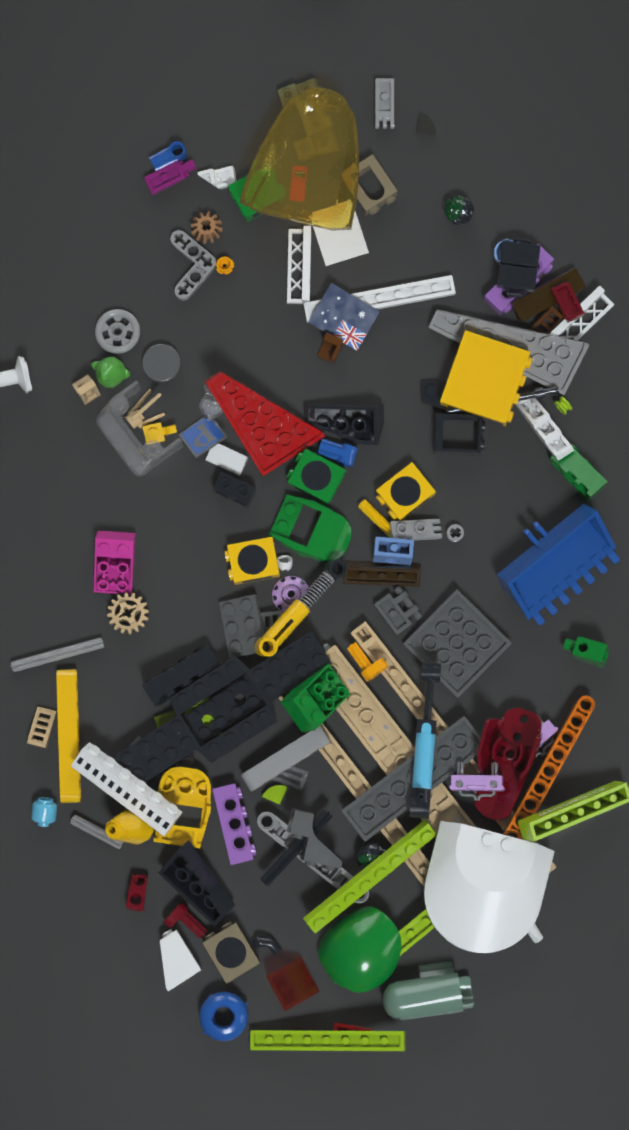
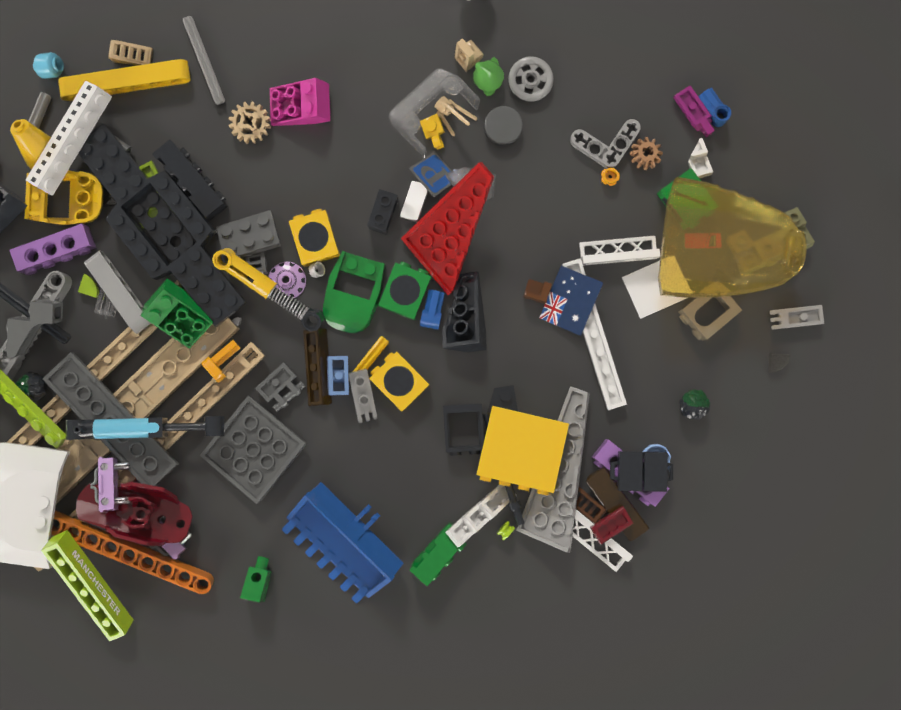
camera: 80 degrees right, 5 degrees up
(455, 539) = (370, 434): light grey bush -> none

